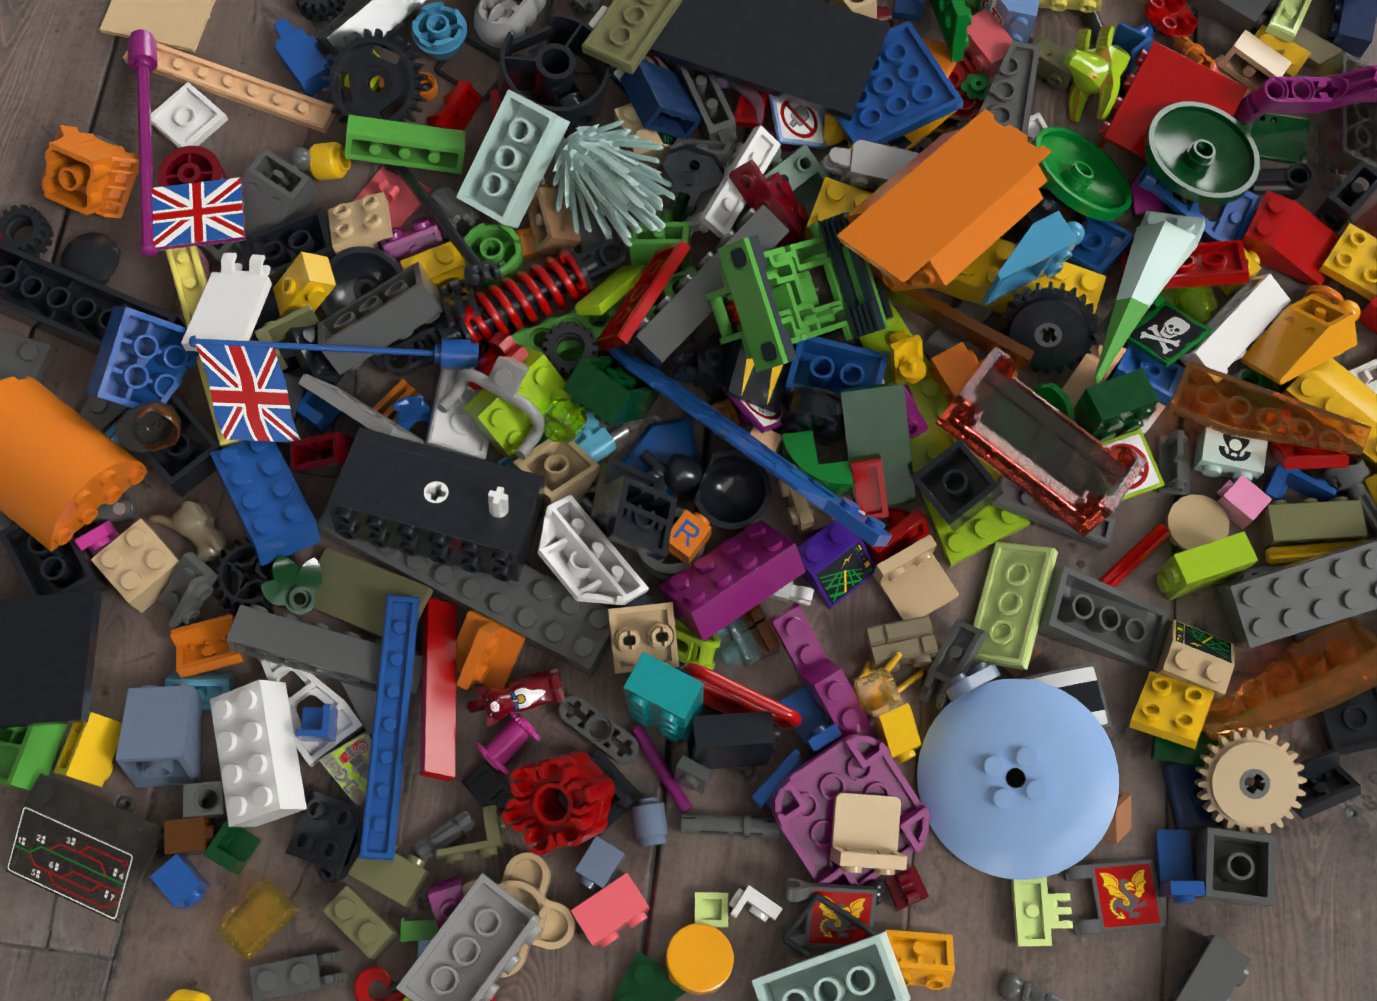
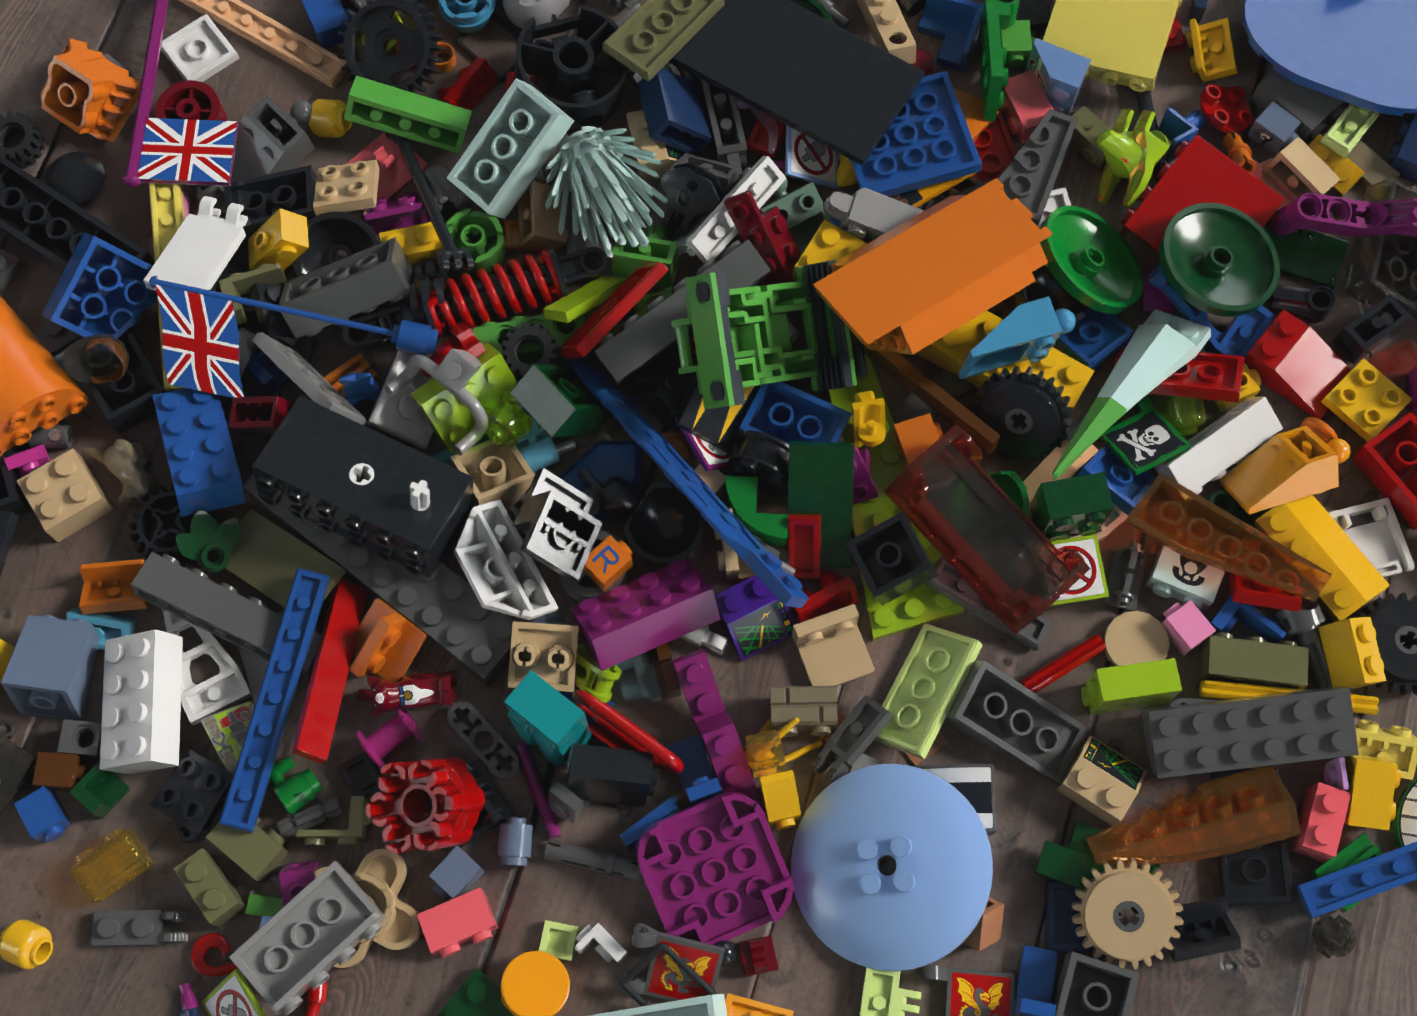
camera: 10 degrees right, 0 degrees up
(188, 590) = (105, 528): dark grey bracket -> none
(318, 724) = (206, 684): blue panel -> none
(427, 810) = (297, 789): none -> green piece
(866, 833) = (725, 892): tan bracket -> none
(962, 685) = (874, 756): sand blue plate -> none
(976, 86) = (1000, 151): green plant -> none
(1172, 709) = (1064, 826): yellow plate -> none
(1220, 27) = (1274, 129): none -> sand blue brick

